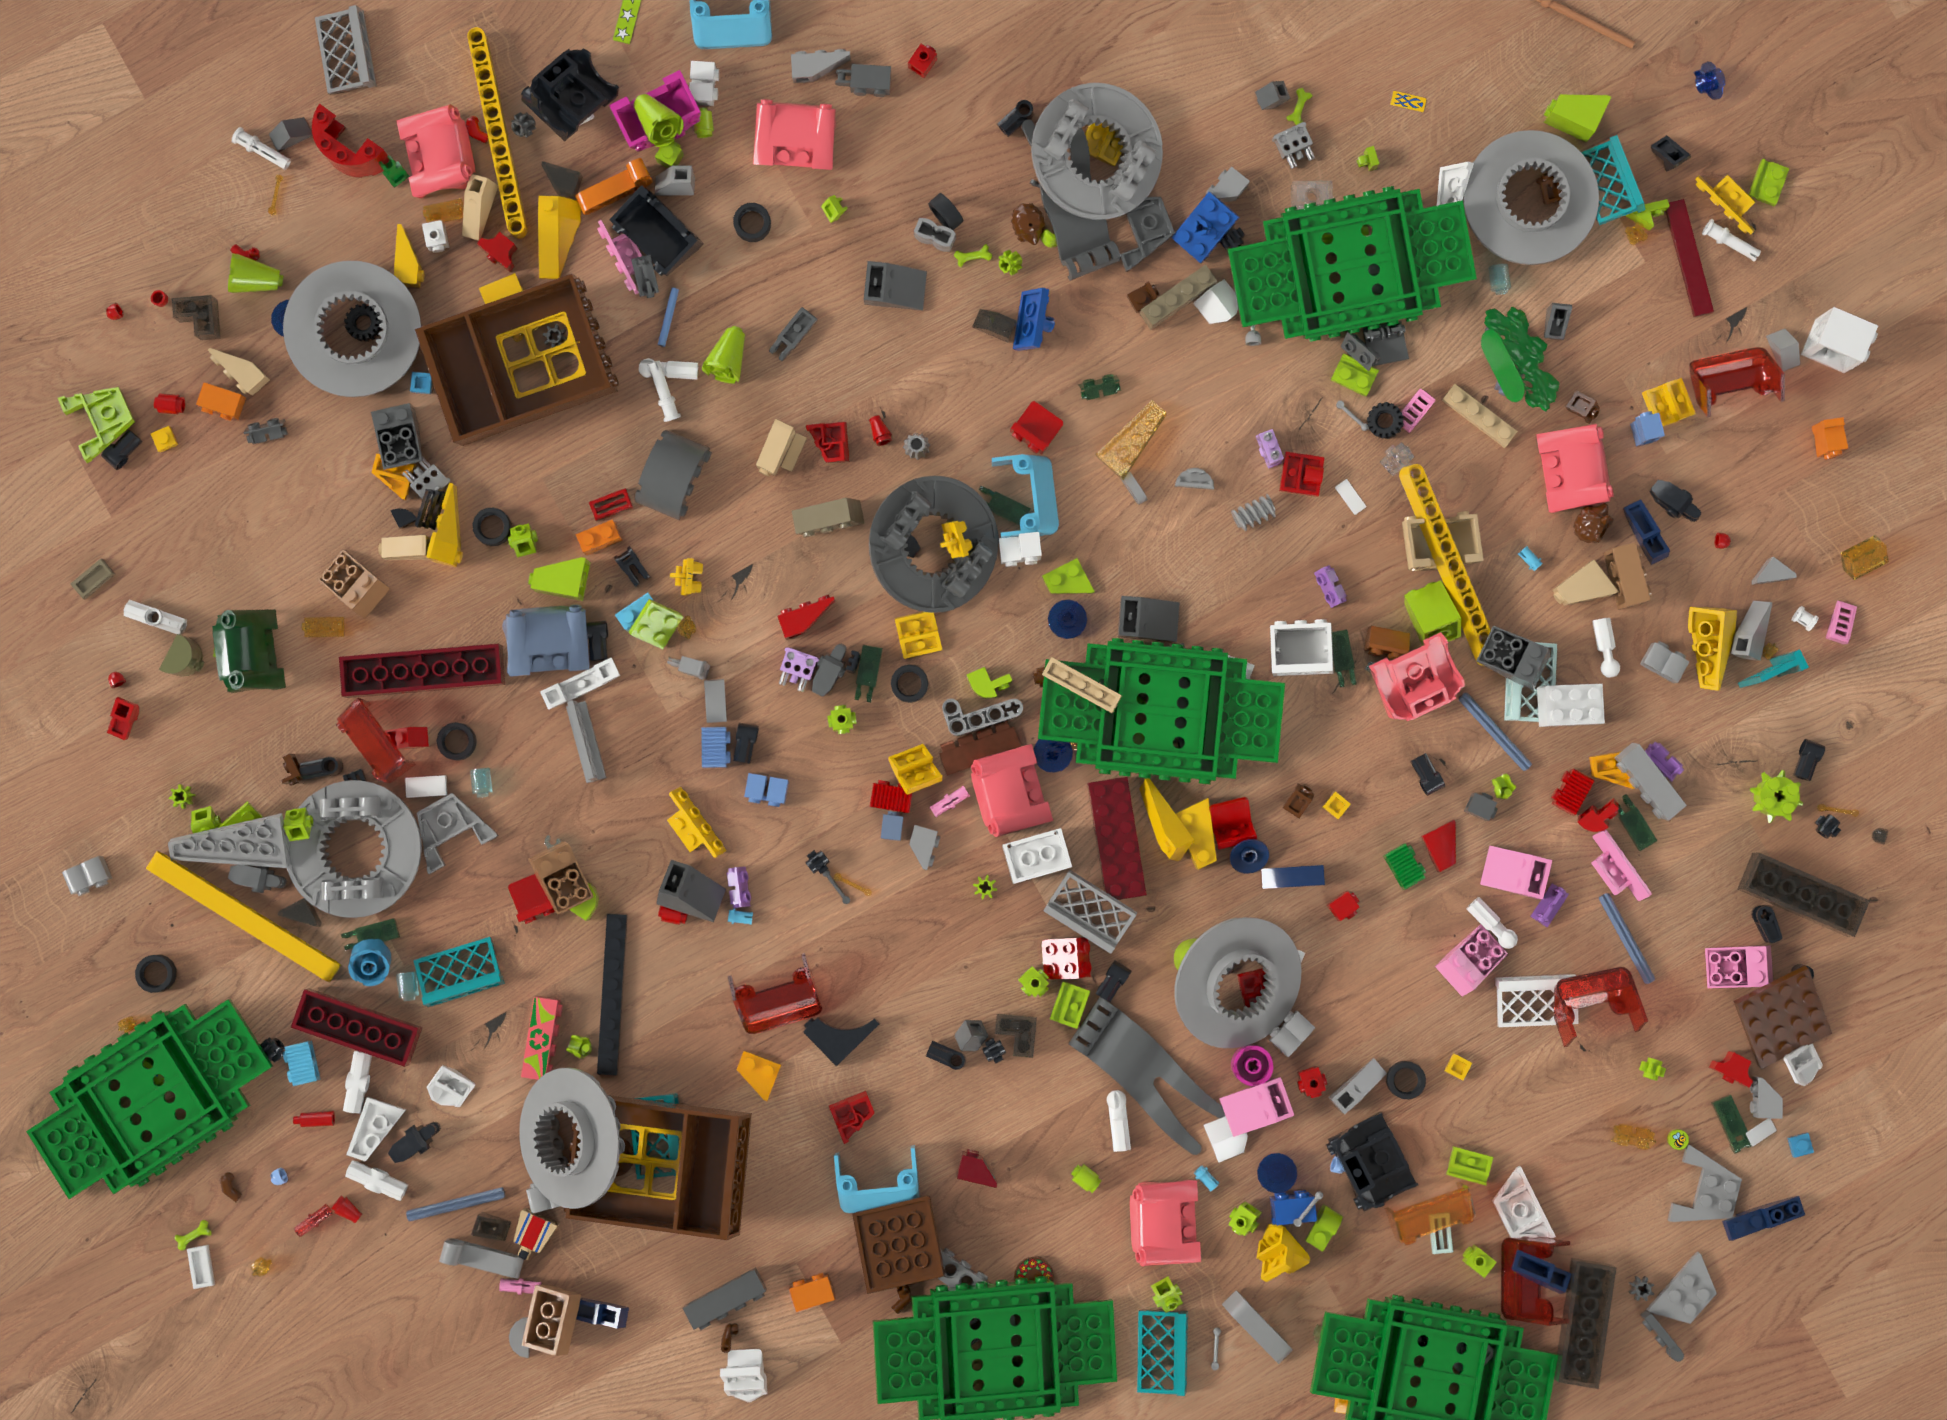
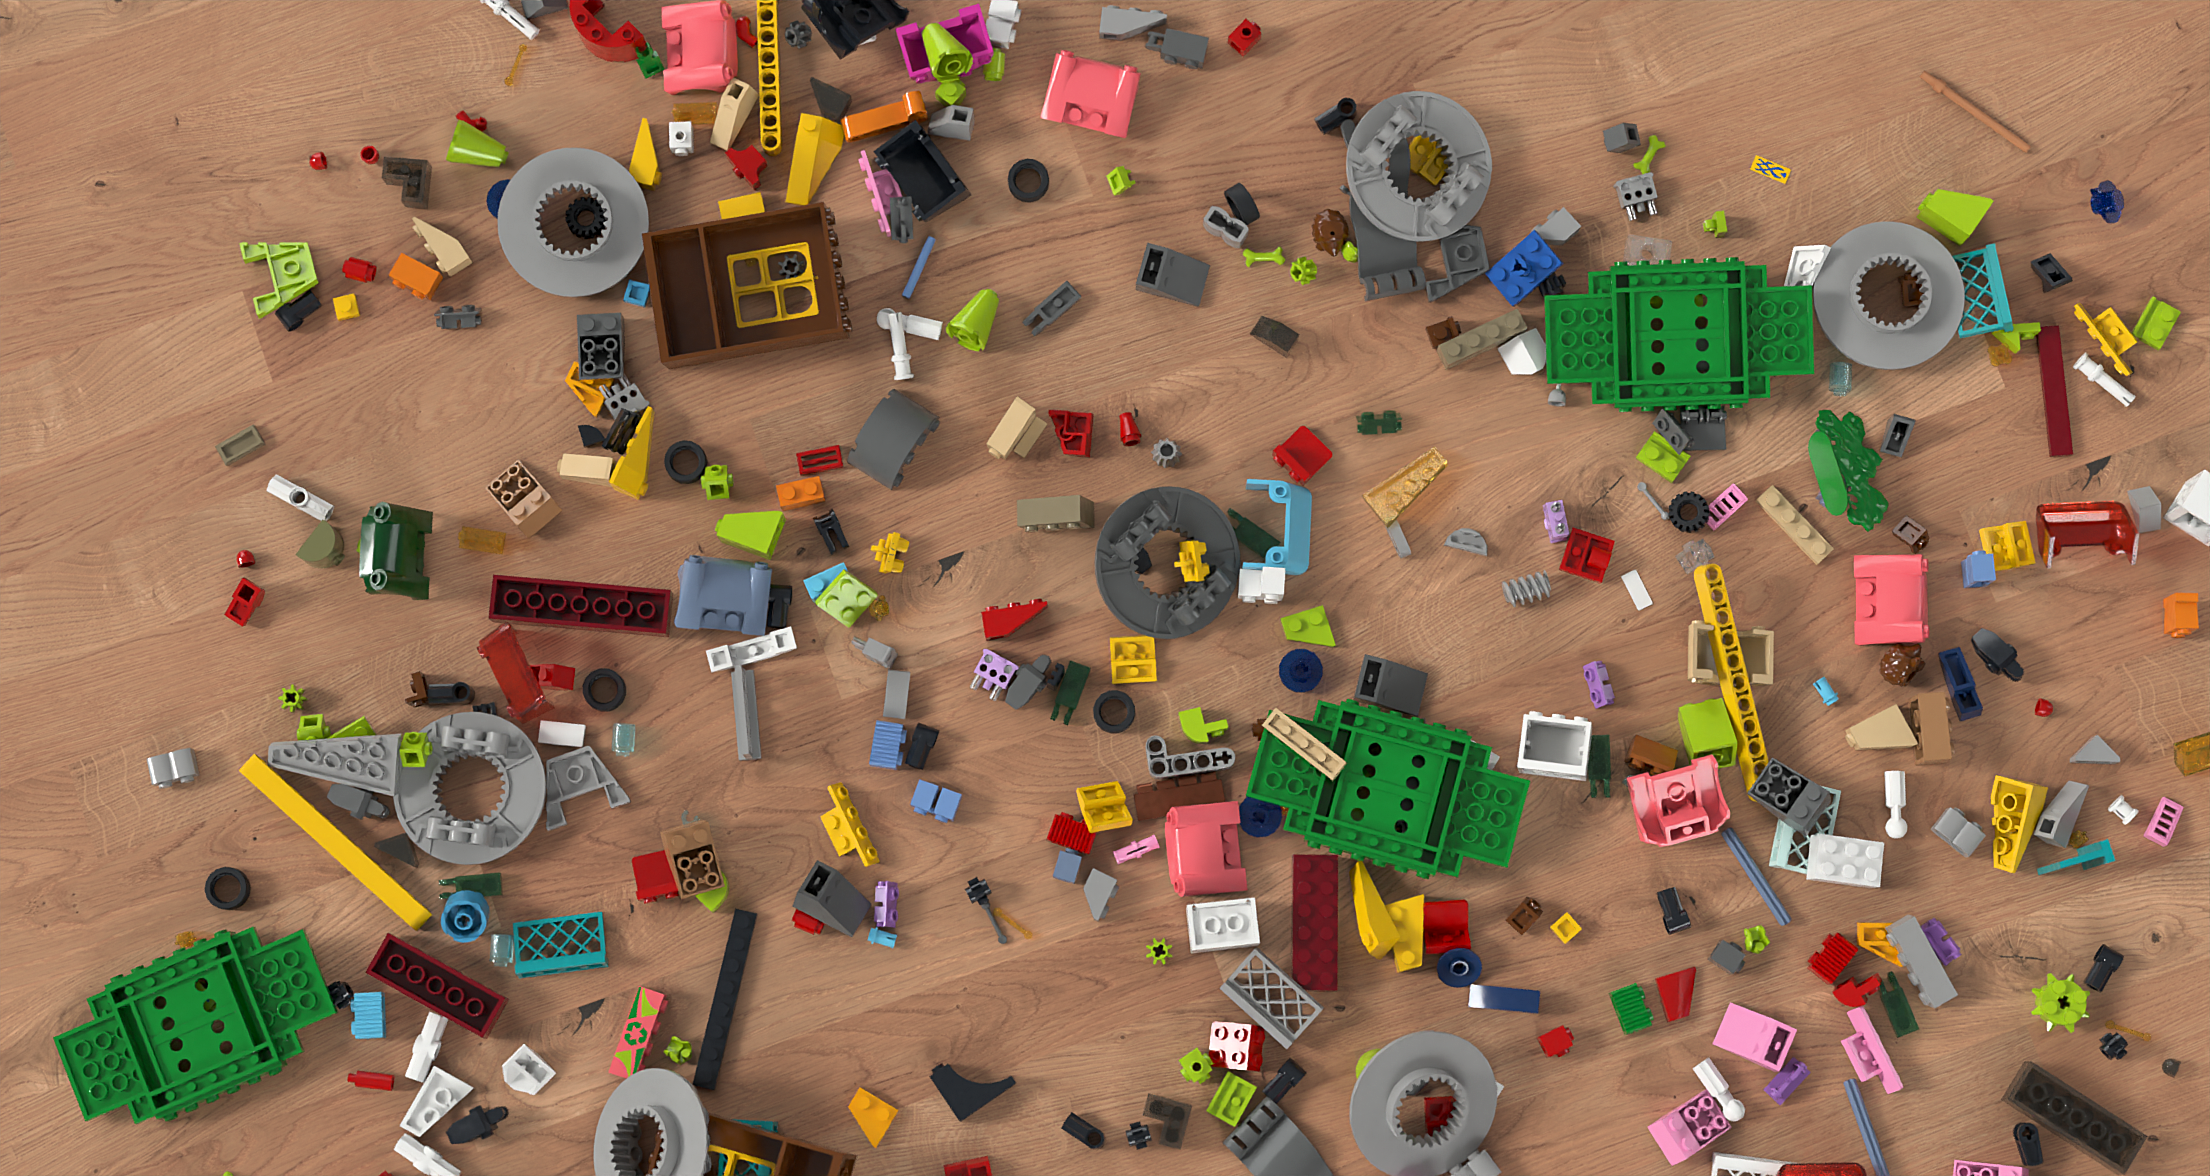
camera: 15 degrees right, 5 degrees down
(227, 1188) = (261, 1139): reddish brown arm -> none
(279, 1176) = (320, 1137): light blue hinge -> none
(778, 1004) = (909, 1041): clear red windscreen -> none
(850, 719) = (1036, 746): lime brick -> none
(971, 1035) = (1115, 1114): dark grey panel -> none
(1032, 319) = (1317, 336): blue plate -> none

